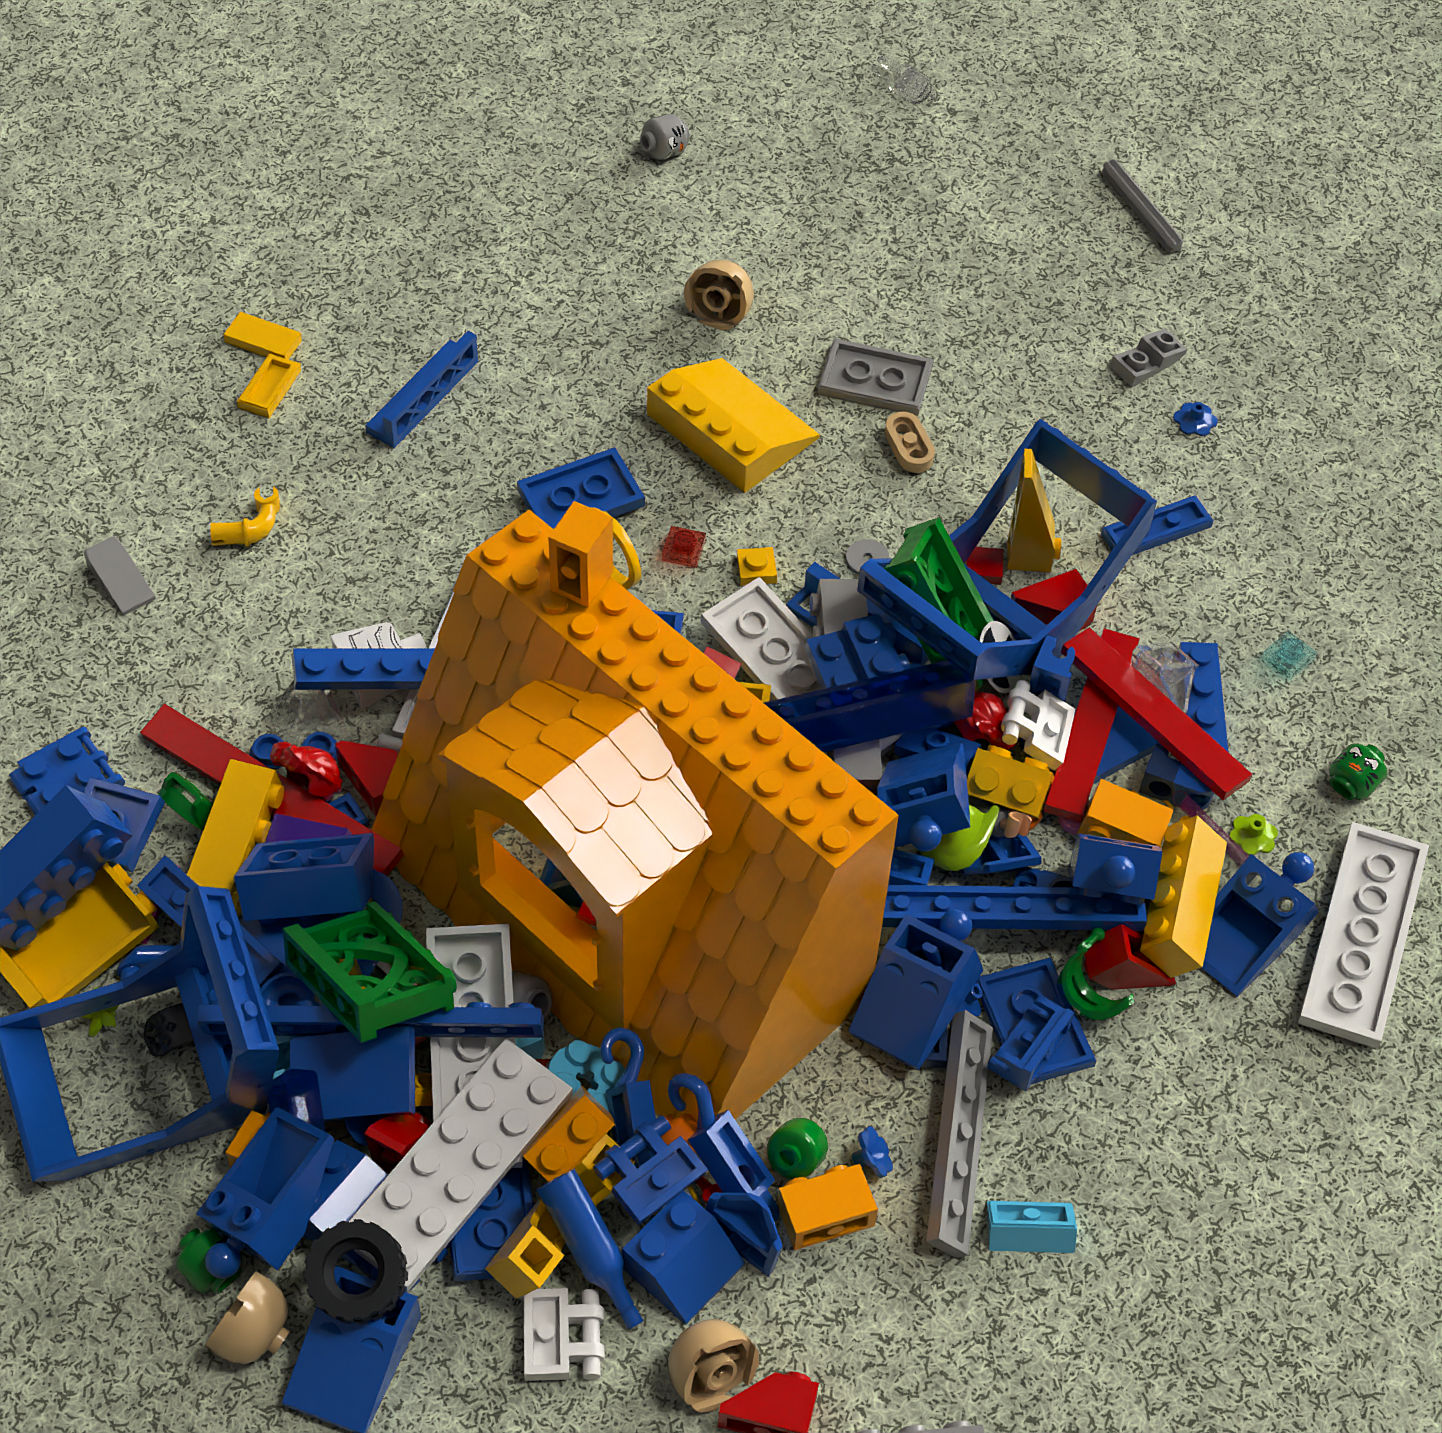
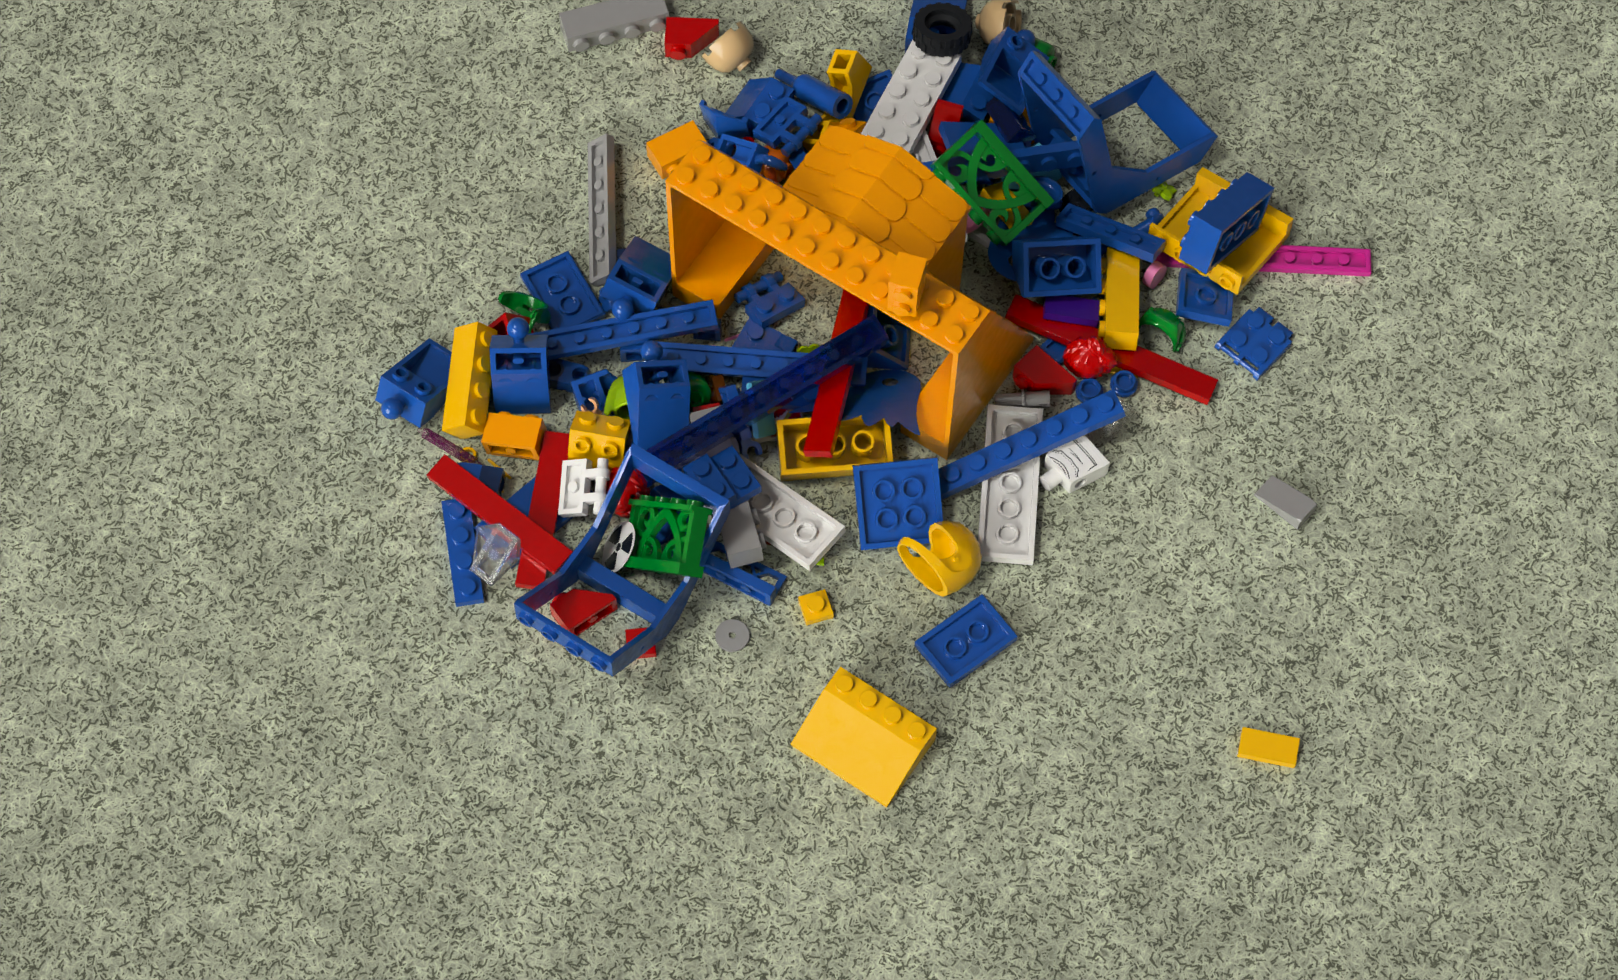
camera: 170 degrees right, 10 degrees up
(252, 530) = (1205, 557): yellow piece -> none
(269, 385) = (1244, 700): yellow tile -> none
(424, 390) = (1120, 716): blue fence -> none
(547, 1334) = (822, 45): white plate -> none
(684, 546) = (875, 613): clear red plate -> none
(719, 288) = (900, 860): tan cylinder -> none
(873, 1152) = (653, 188): blue plant -> none
(875, 376) = (755, 813): light grey tile -> none
(911, 444) = (717, 745): tan plate -> none
(1031, 1226) = (551, 171): medium azure slope -> none
(1032, 526) = (606, 639): yellow slope -> none
(1032, 1042) = (563, 265): blue hinge -> none
(1051, 672) = (578, 521): blue hinge -> none
(1150, 357) = (527, 880): light grey slope -> none
(1167, 525) = (508, 707): blue tile -> none
(1195, 418) = (486, 832): blue plant -> none
(1254, 834) = (421, 459): lime plant -> none
(1289, 655) = (399, 608): clear light blue plate -> none
(1358, 771) = (348, 511): green head -> none
(1364, 935) = (343, 393): white plate -> none

